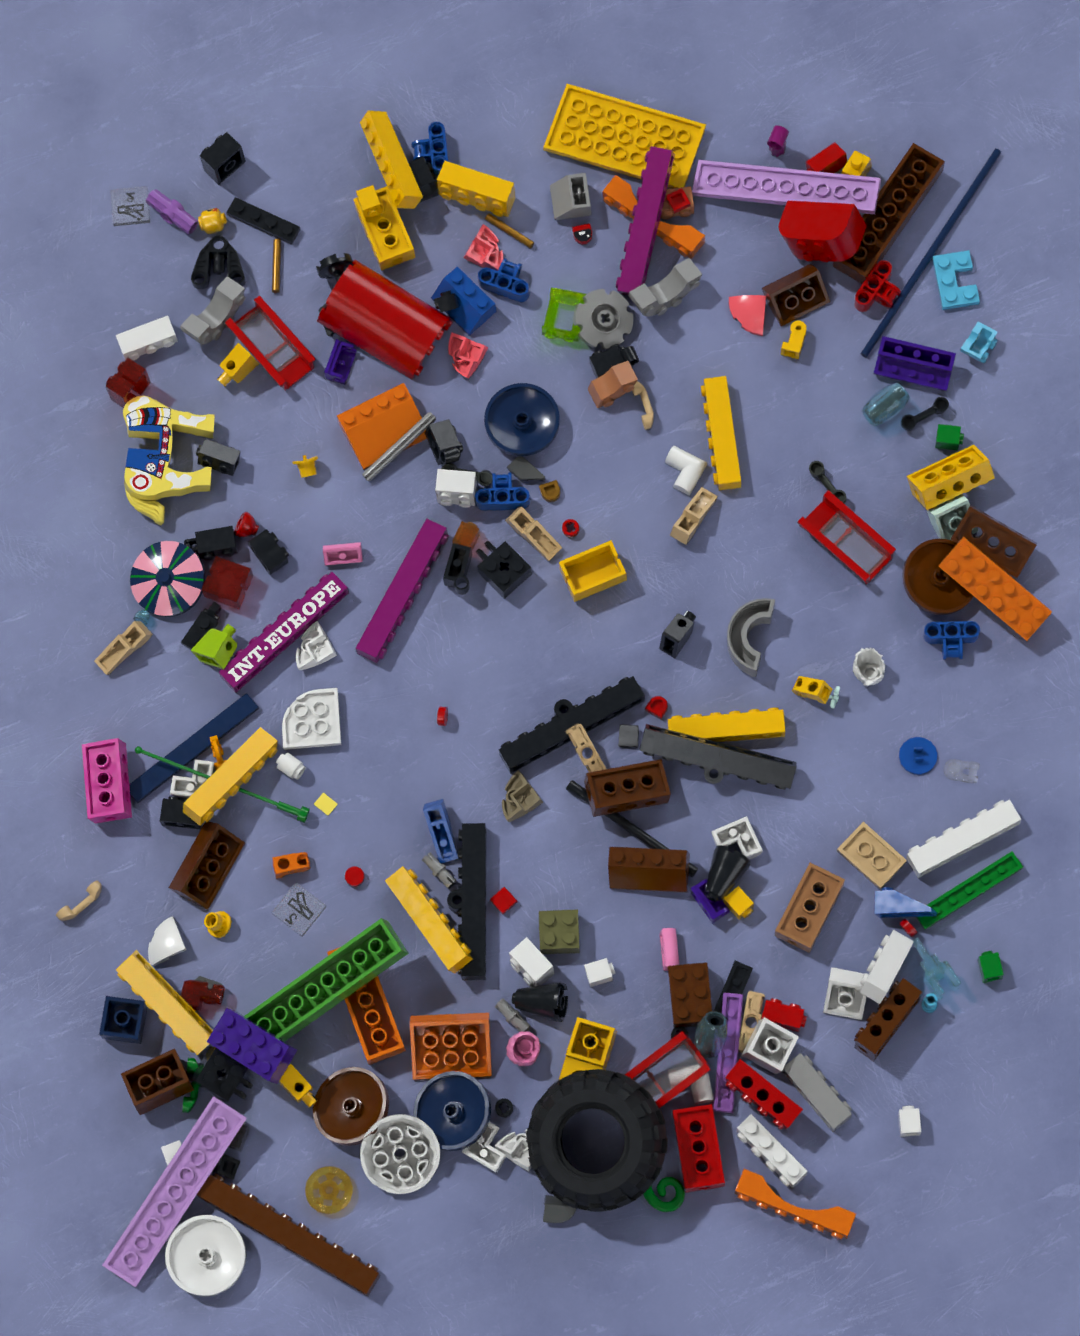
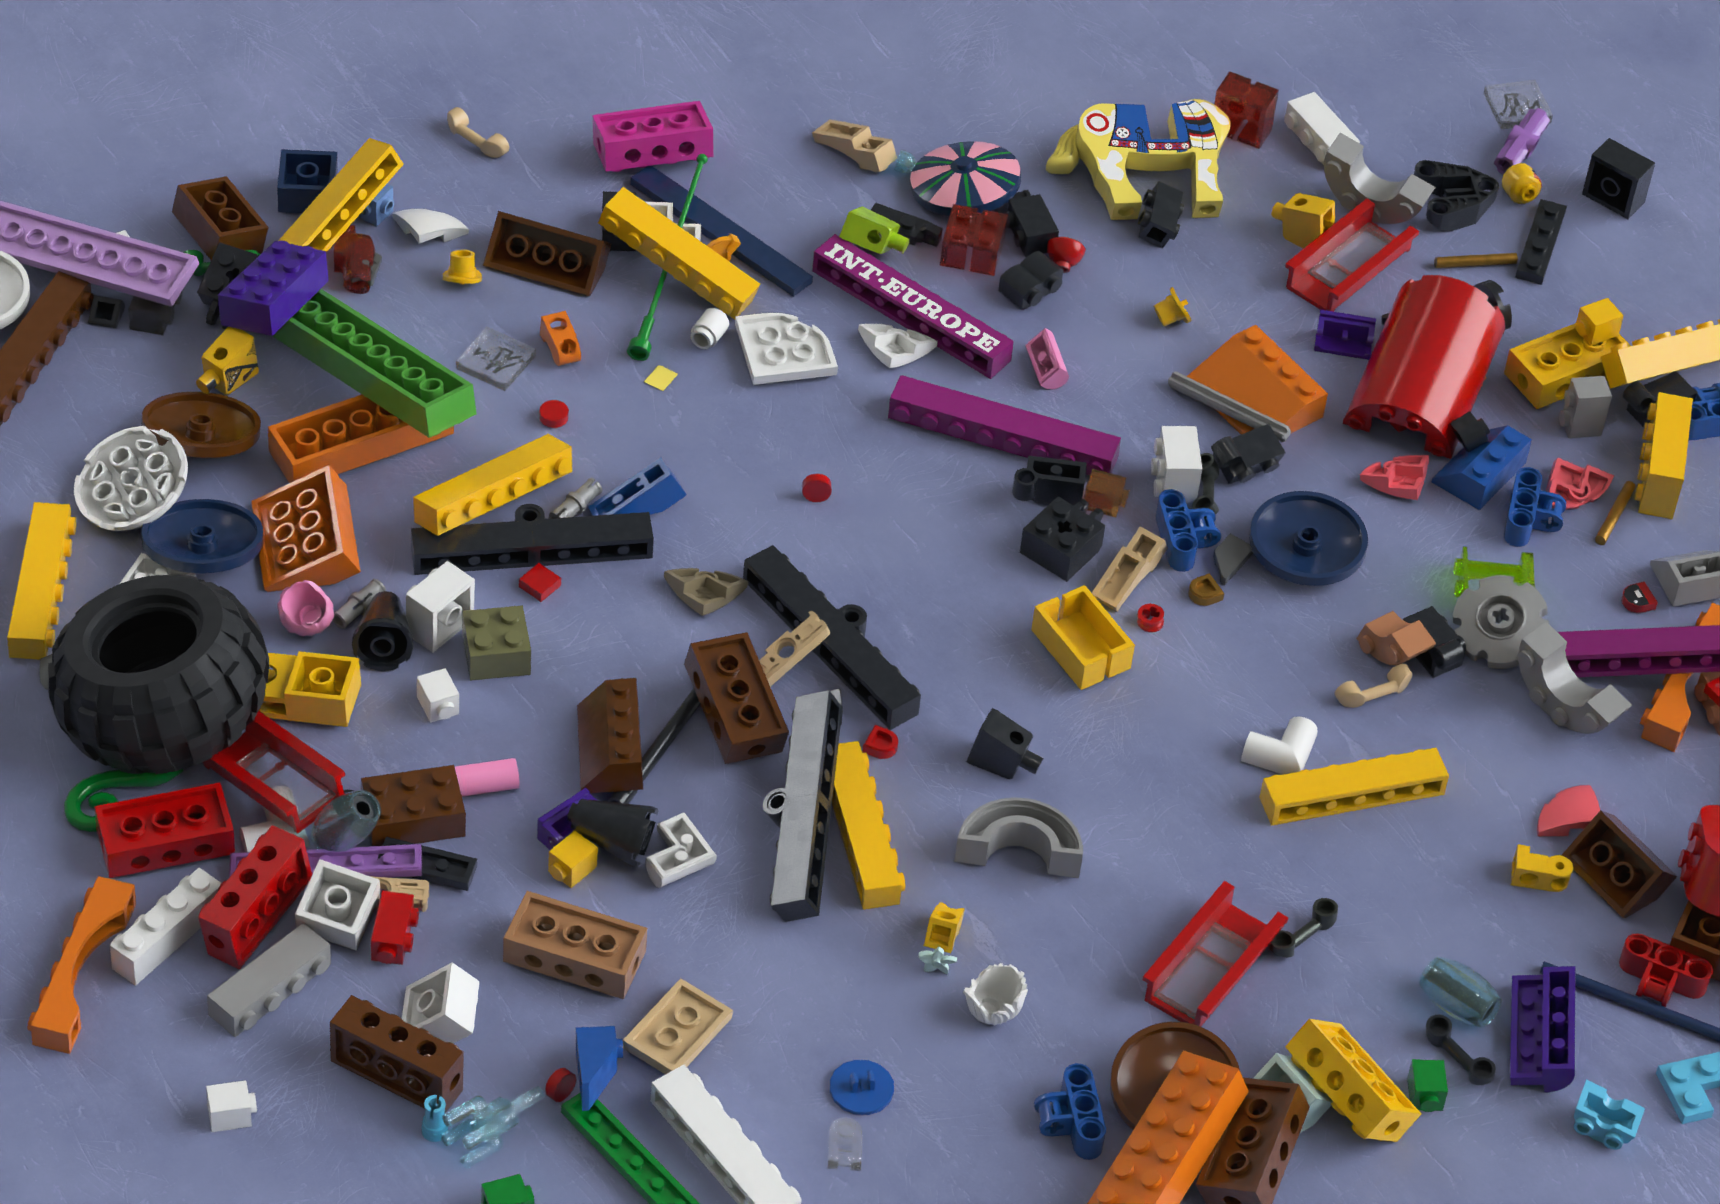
camera: 70 degrees right, 25 degrees down
(337, 1204) = (76, 419): clear yellow plate -> none
(429, 227) = (1585, 407): none -> light grey brick
(474, 1218) = (40, 581): none -> yellow brick
(693, 515) = (1205, 756): tan slope -> none
(885, 968) = (483, 1037): white brick -> none

